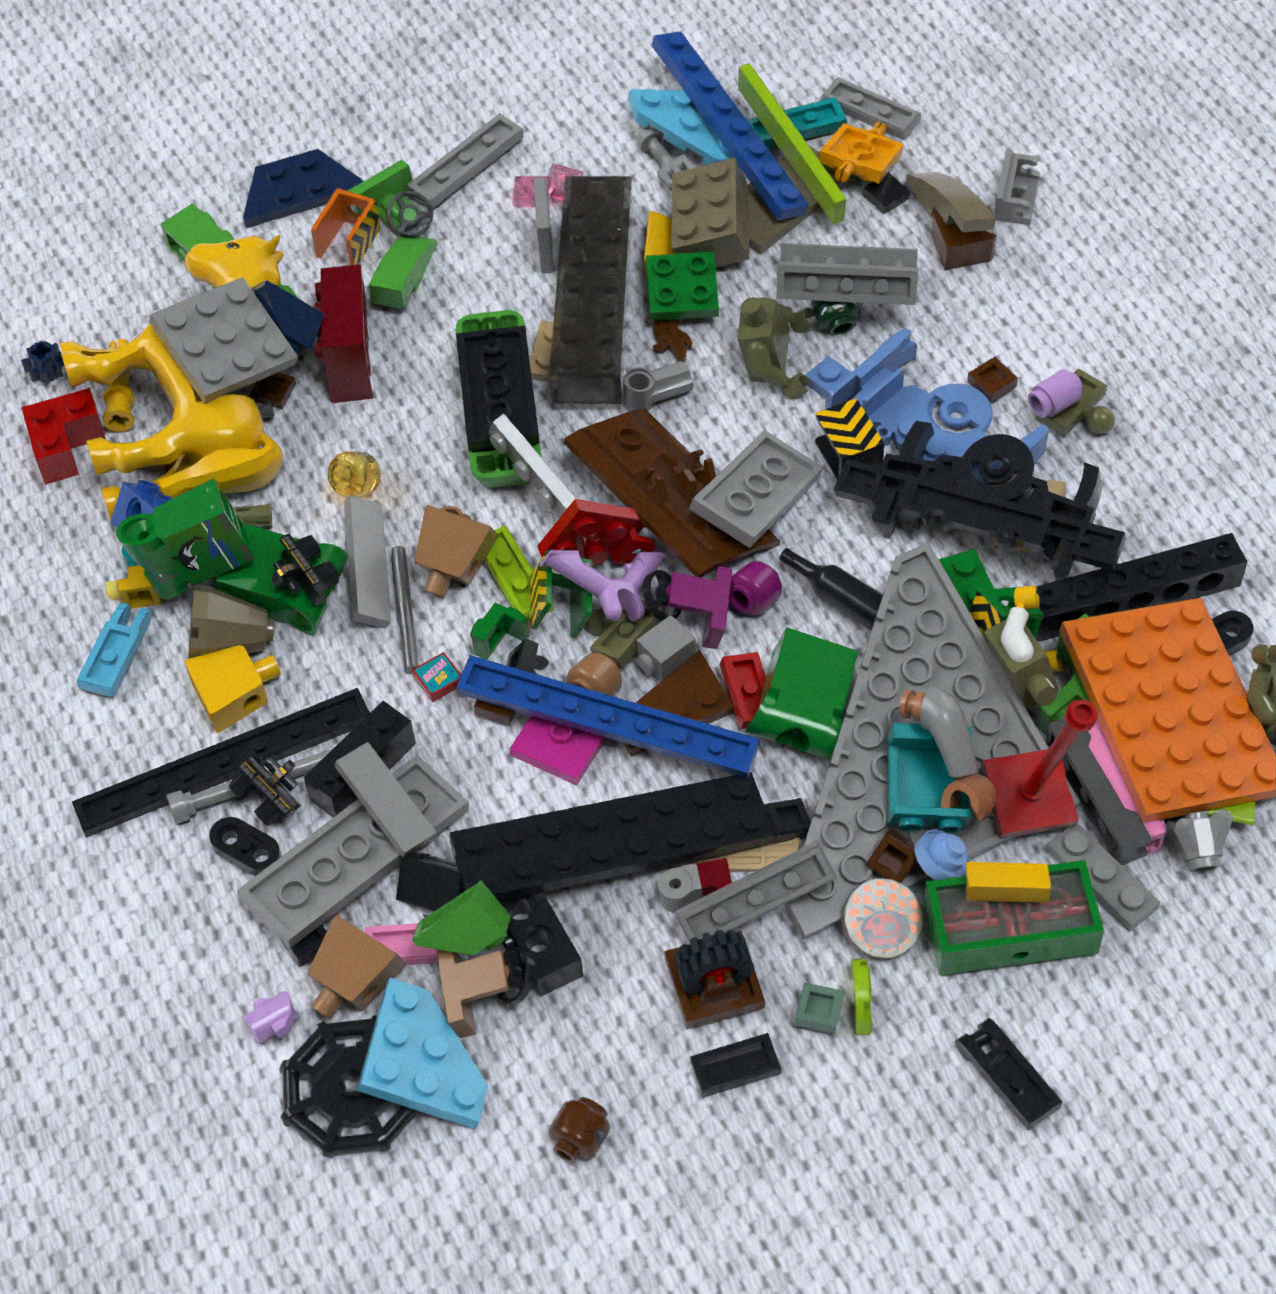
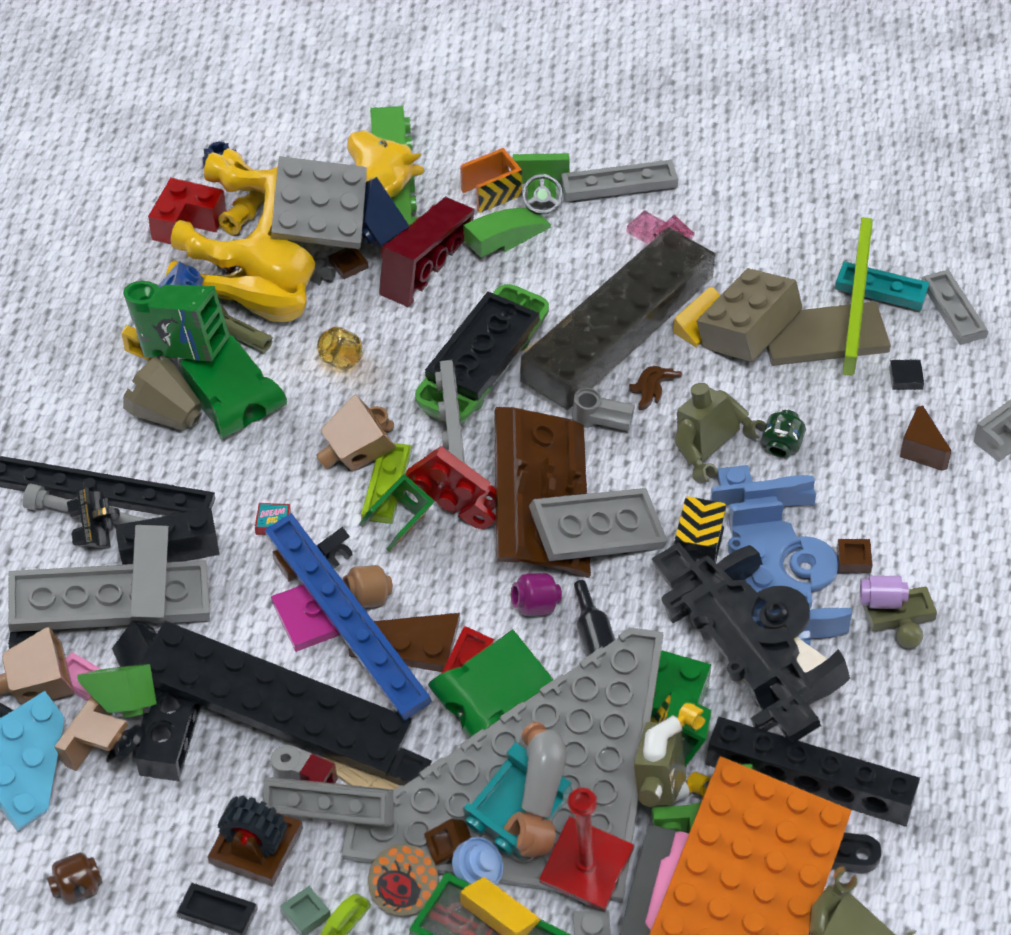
camera: 35 degrees right, 5 degrees down
(113, 651) = (90, 371): medium azure hinge -> none
(230, 684) = (136, 438): yellow torso -> none
(249, 845) = (49, 551): black plate -> none
(294, 186) = (486, 131): dark blue wing -> none
(297, 572) = (241, 376): black hips -> none
(367, 562) = (297, 413): light grey tile -> none
(404, 607) = (293, 461): flat silver bar -> none
(491, 629) = (334, 509): green bracket -> none
(543, 225) = (623, 246): light grey tile -> none
(610, 592) = (424, 528): lavender piece -> none
(619, 637) = (419, 566): olive plate -> none
(650, 141) = (763, 239): light grey hinge -> none
(664, 648) = (433, 594): light grey brick -> none
(680, 121) = (803, 242): medium azure plate -> none
(682, 286) = (684, 352): green plate -> none
(693, 595) = (484, 572): magenta piece -> none
(730, 125) = (825, 259): blue plate -> none
(847, 274) = (809, 412): light grey fence -> none
(861, 153) = (909, 333): light orange plate -> none
(952, 200) = (939, 406): dark tan slope -> none

